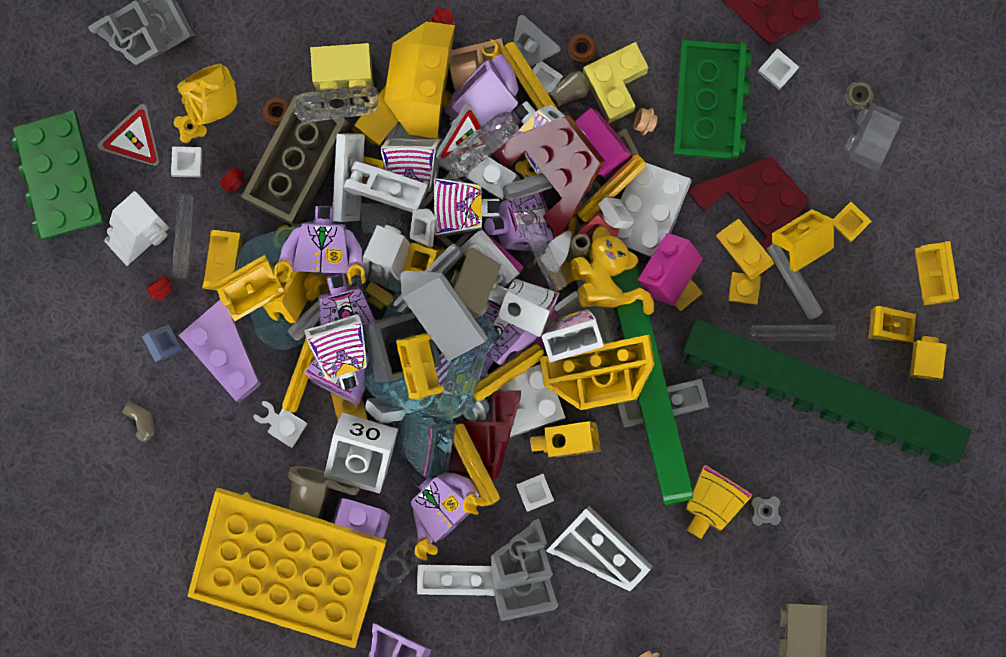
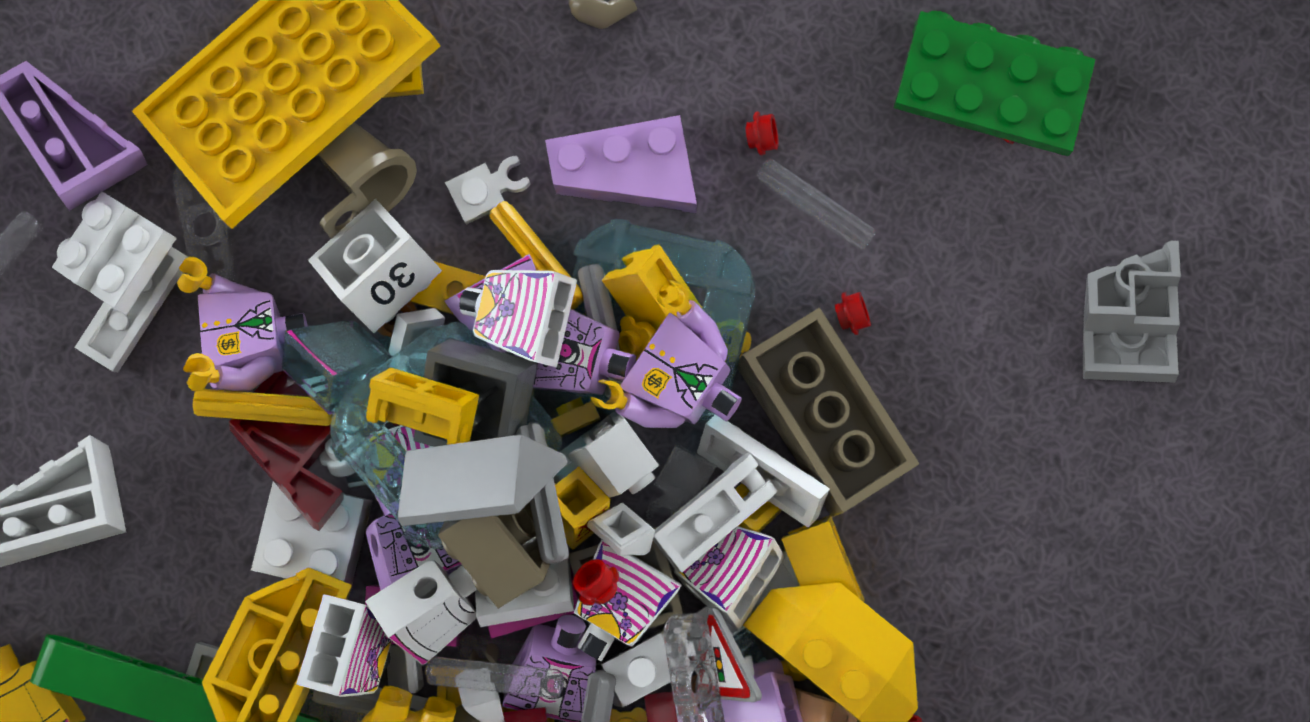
camera: 120 degrees right, 0 degrees up
(132, 138) = (988, 211): piece -> none
(134, 228) = (863, 145): white wedge -> none
(162, 343) = (686, 92): sand blue plate -> none
(186, 162) = (913, 266): white plate -> none
(188, 134) = (950, 307): yellow plate -> none
(209, 94) = (988, 347): yellow piece -> none
(221, 257) = (750, 234): yellow hinge -> none
(249, 288) = (684, 243): yellow hinge -> none
(270, 105) = (925, 423): dark orange plate -> none
(341, 66) = (919, 550): light yellow brick -> none
(344, 93) = (872, 477): clear beam -> none
(360, 517) = (291, 213): lavender torso -> none
(439, 605) = (113, 252): none -> white plate
(457, 222) = (595, 582): none -> red plate
(508, 372) = (356, 529): yellow axle -> none
(523, 575) = (84, 387): light grey slope -> none
(535, 492) = (186, 469): white plate -> none
(579, 437) = (220, 574): yellow torso -> none

